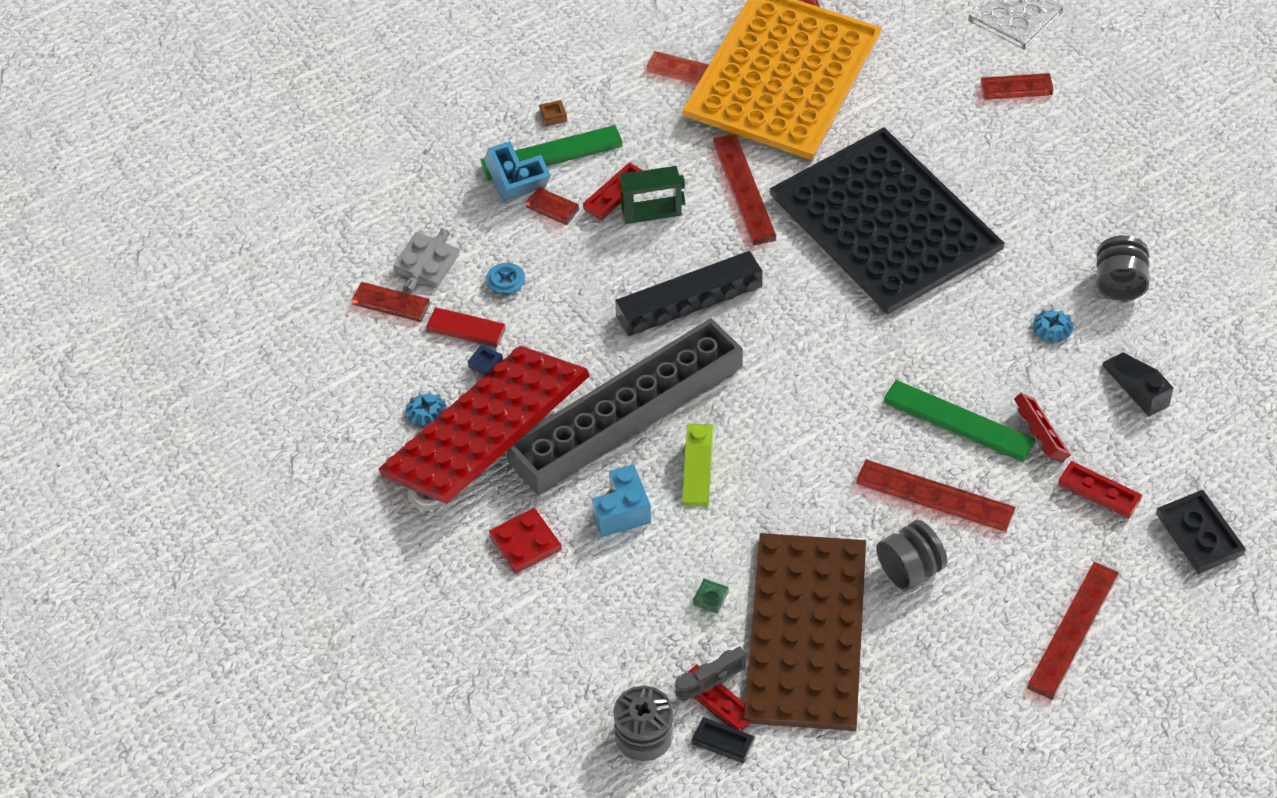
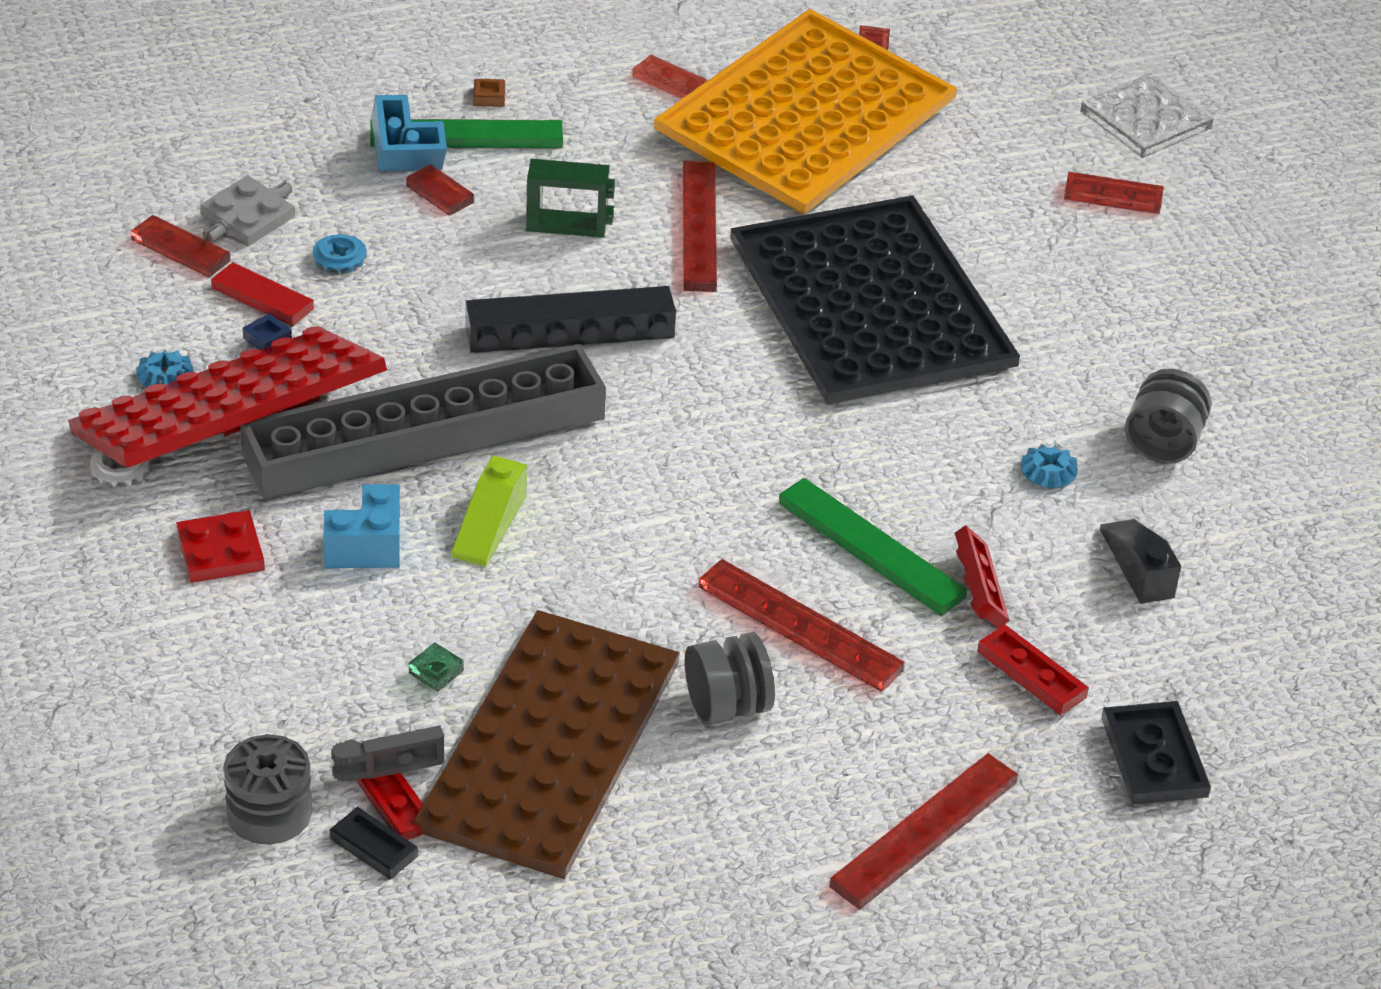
camera: 10 degrees right, 10 degrees down
(607, 196) = (511, 196): red plate -> none

